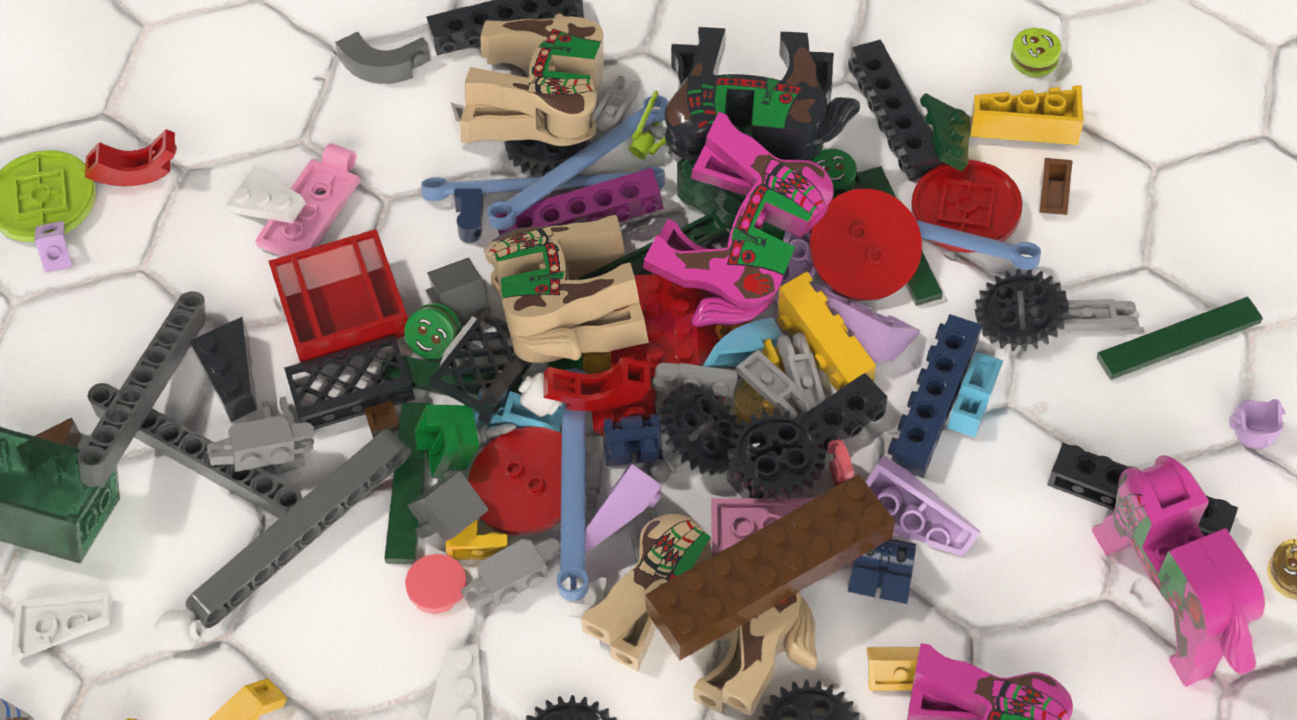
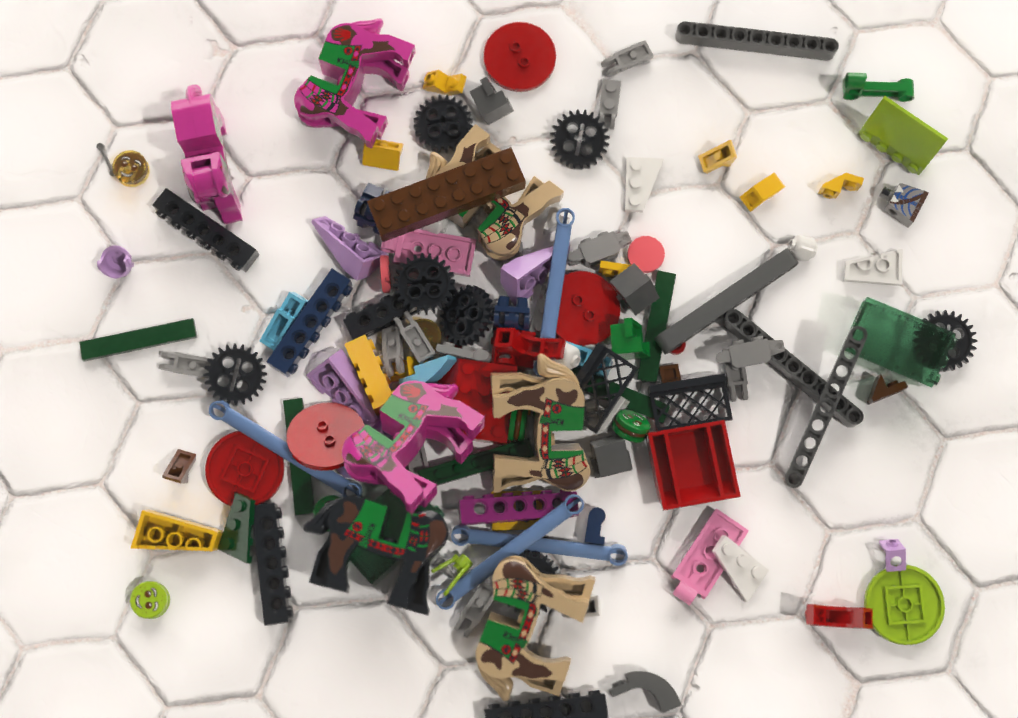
camera: 175 degrees left, 20 degrees up
(228, 367) = (770, 426): black wedge -> none

